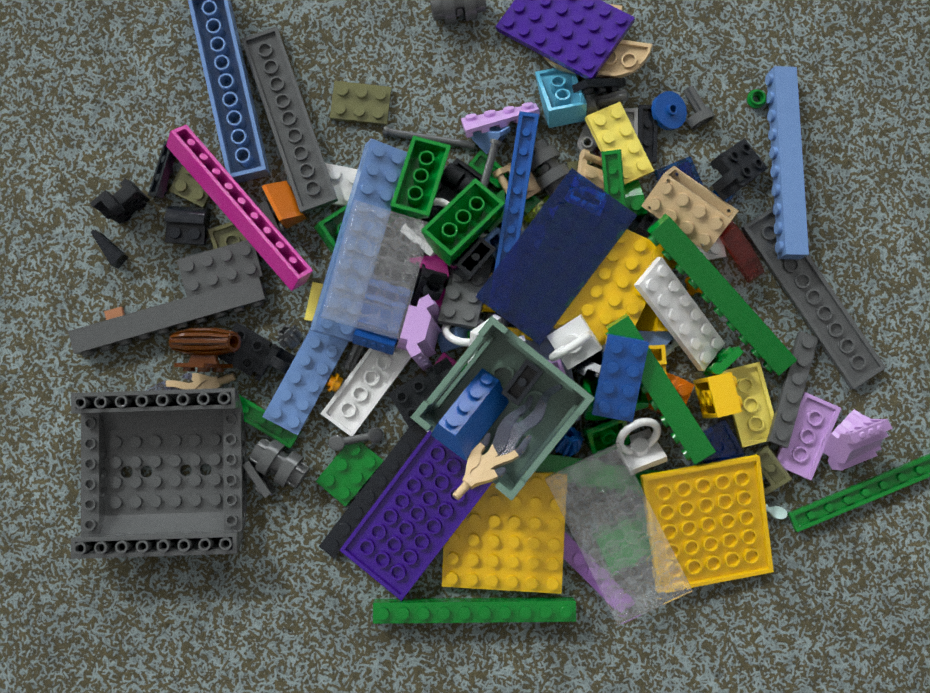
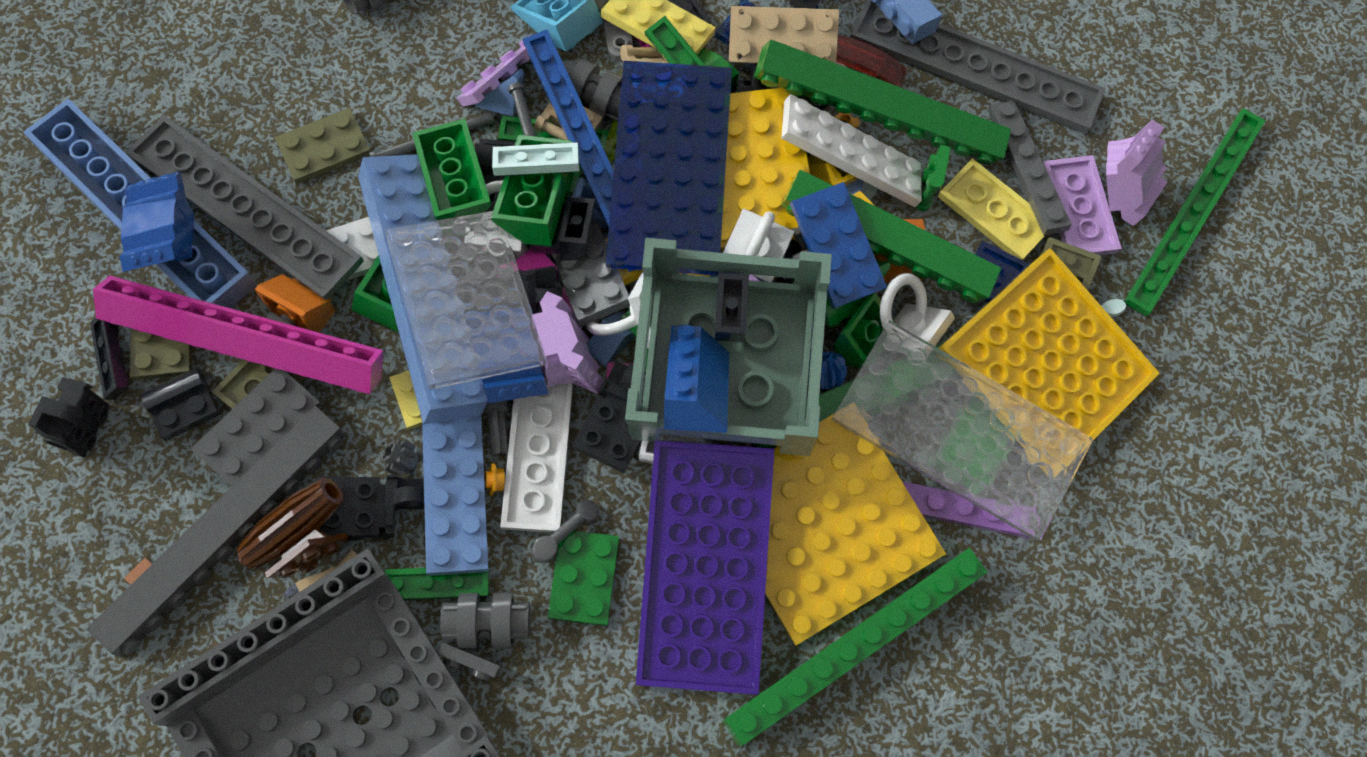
camera: 40 degrees left, 15 degrees down
(111, 251) = (97, 495): black slope -> none
(227, 109) = (156, 222): none -> blue slope
(372, 490) = (629, 583): black plate -> none
(472, 206) = (535, 159): none -> light aqua plate
(482, 468) = (764, 394): piece -> none
(718, 395) = (957, 209): yellow brick -> none

